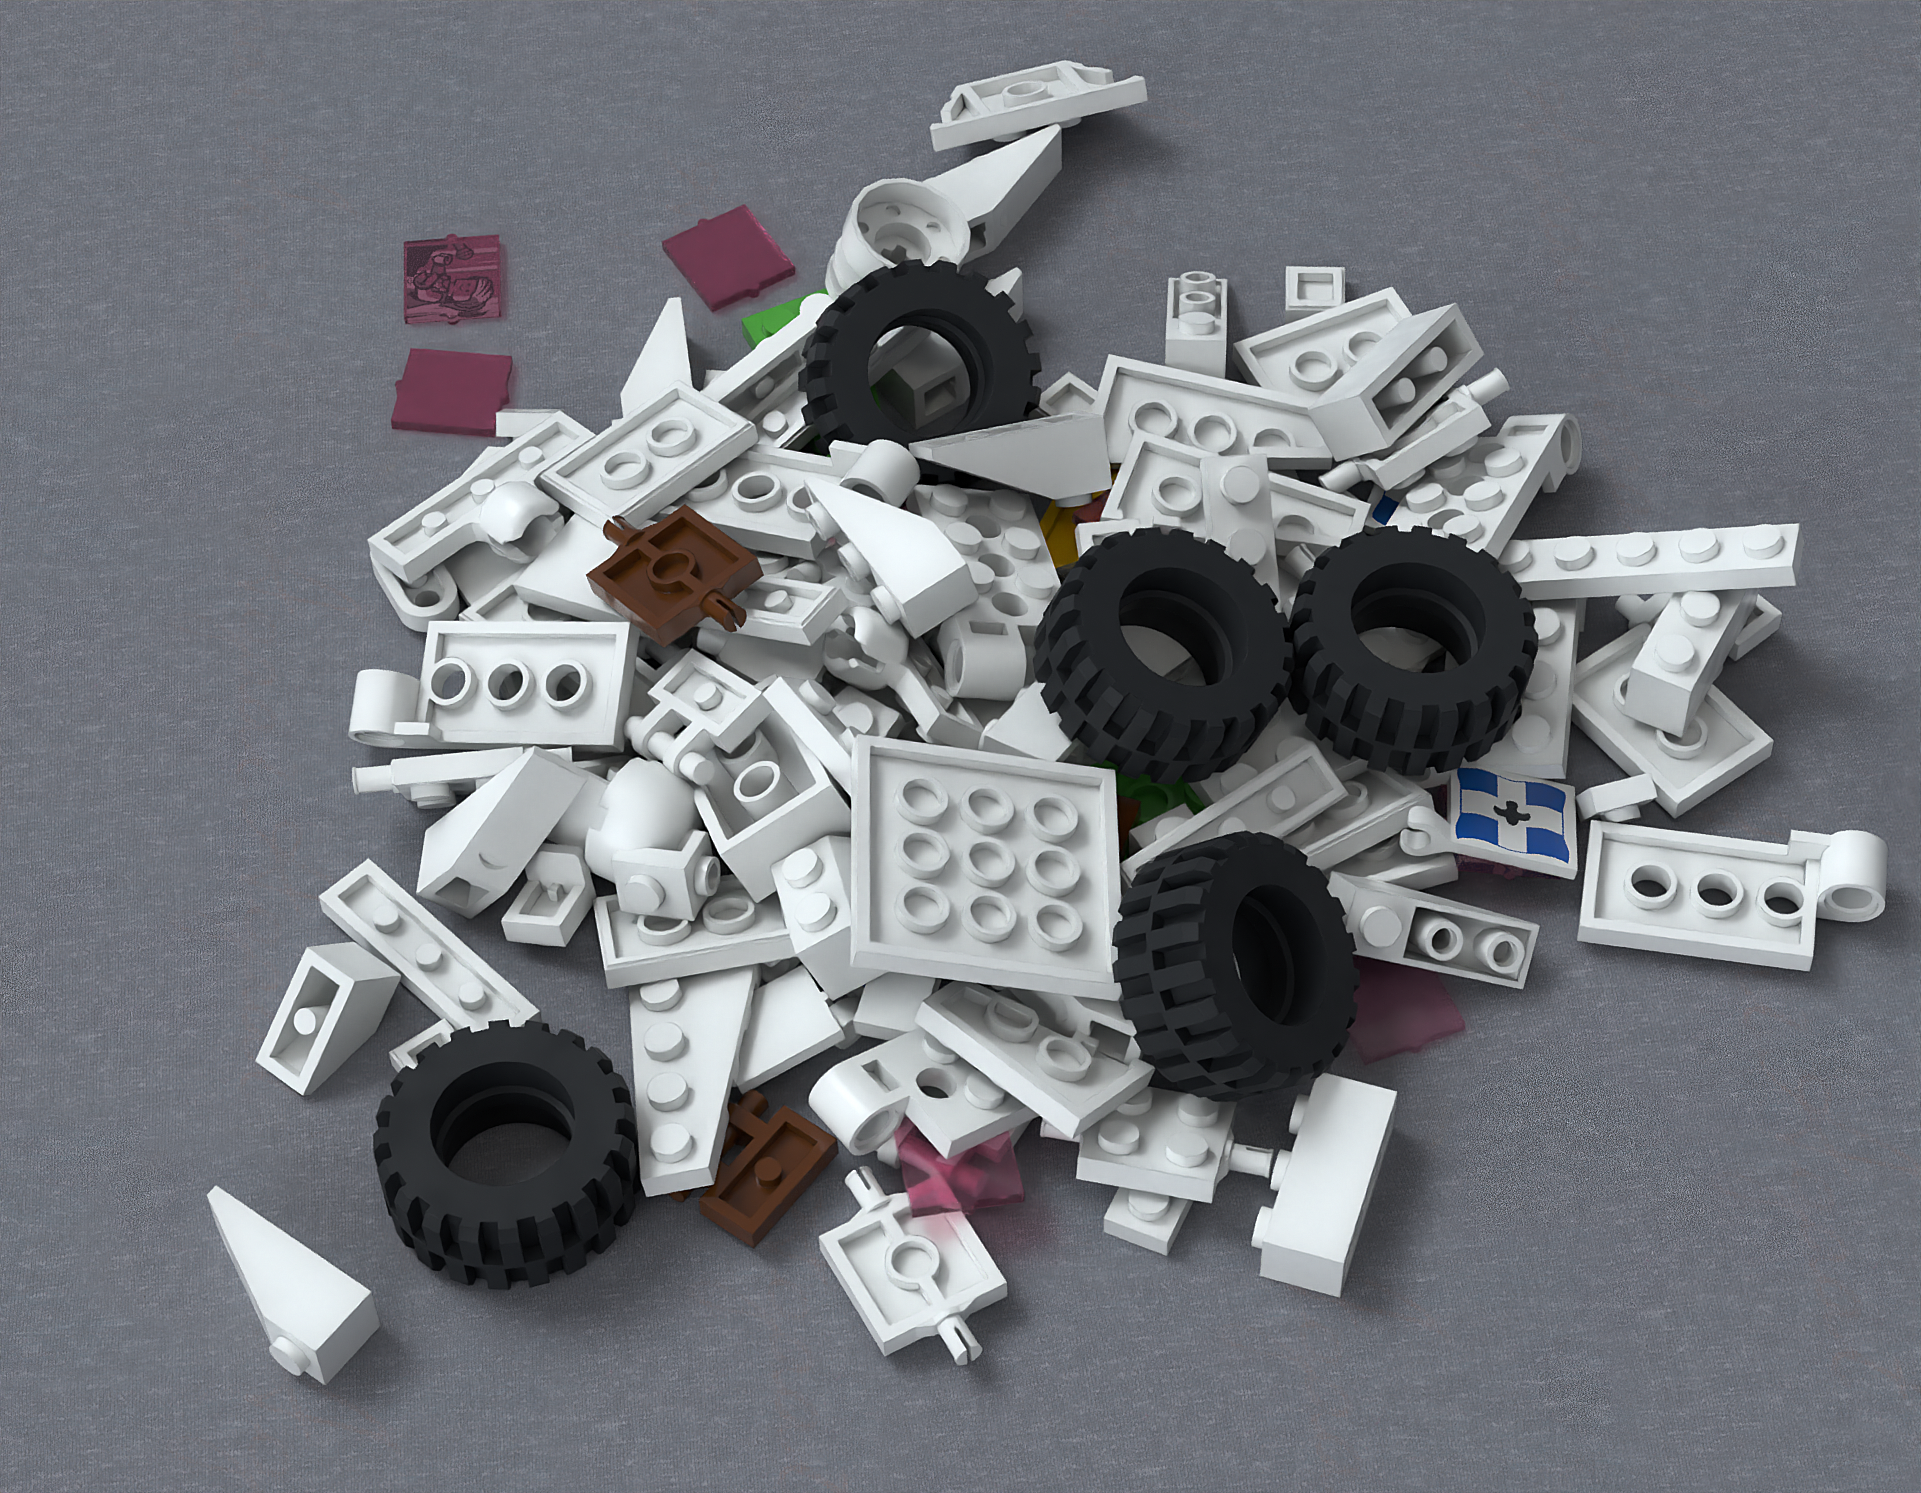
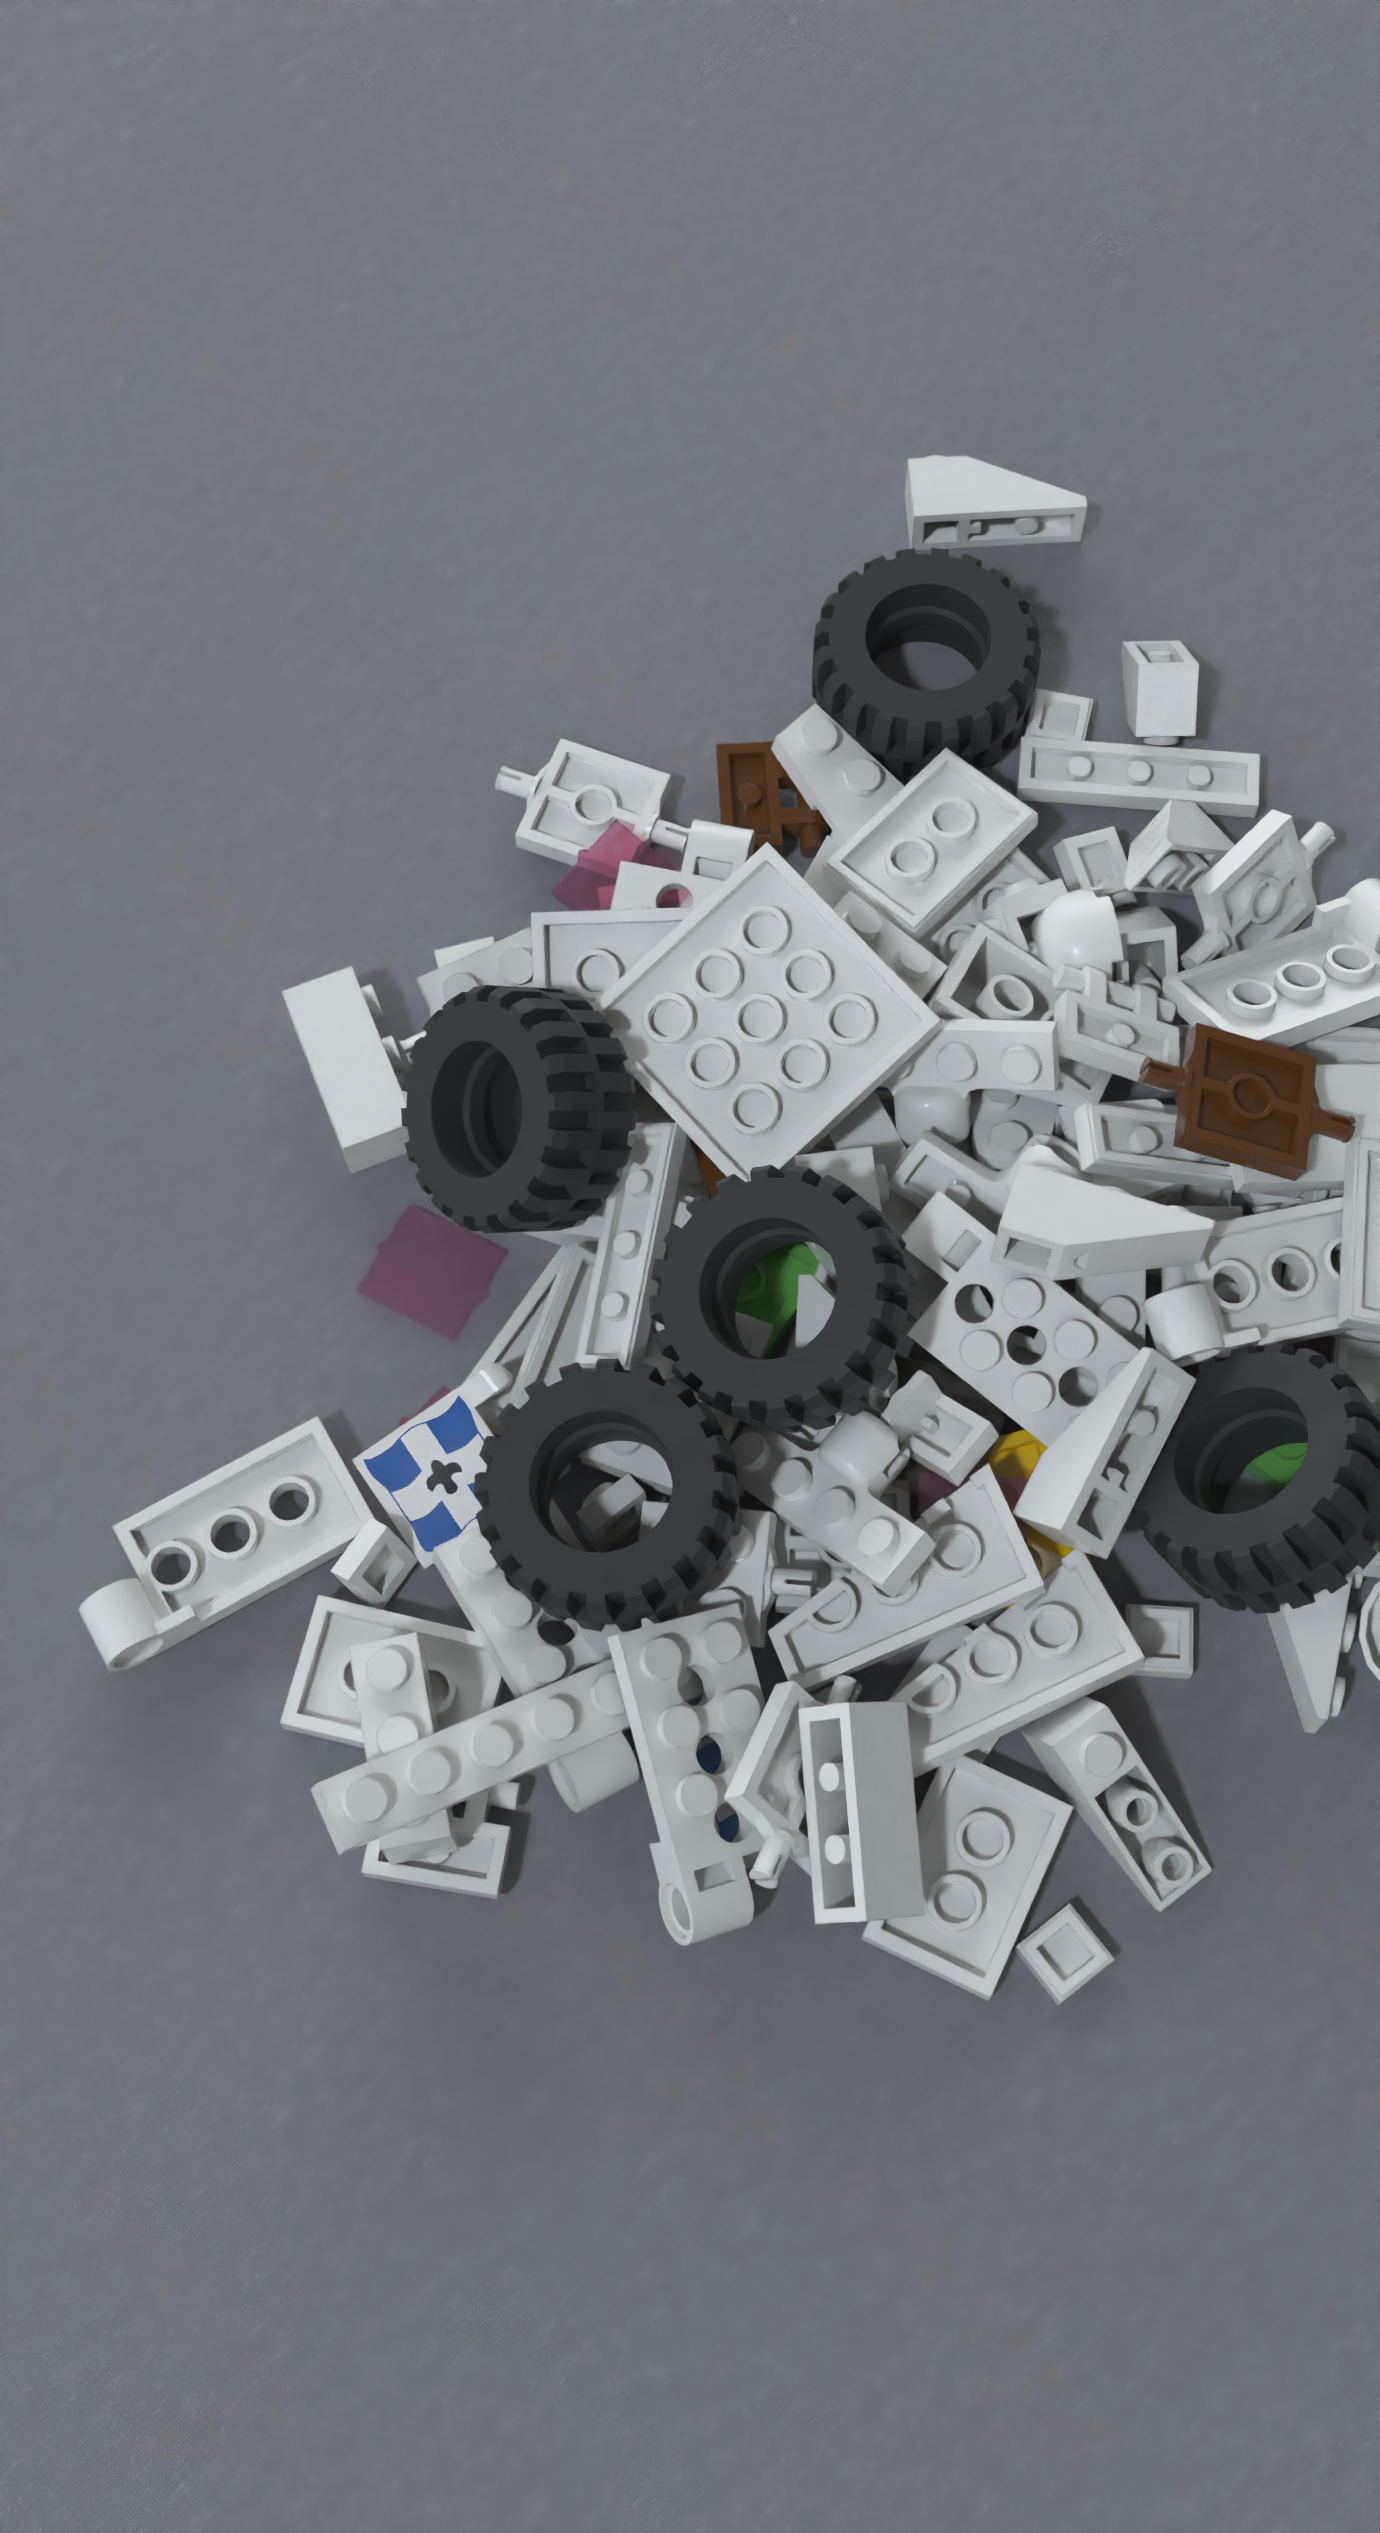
camera: 140 degrees right, 15 degrees up
(678, 978) = (931, 844): none -> white tile
(1434, 931) = (446, 1309): white slope -> none

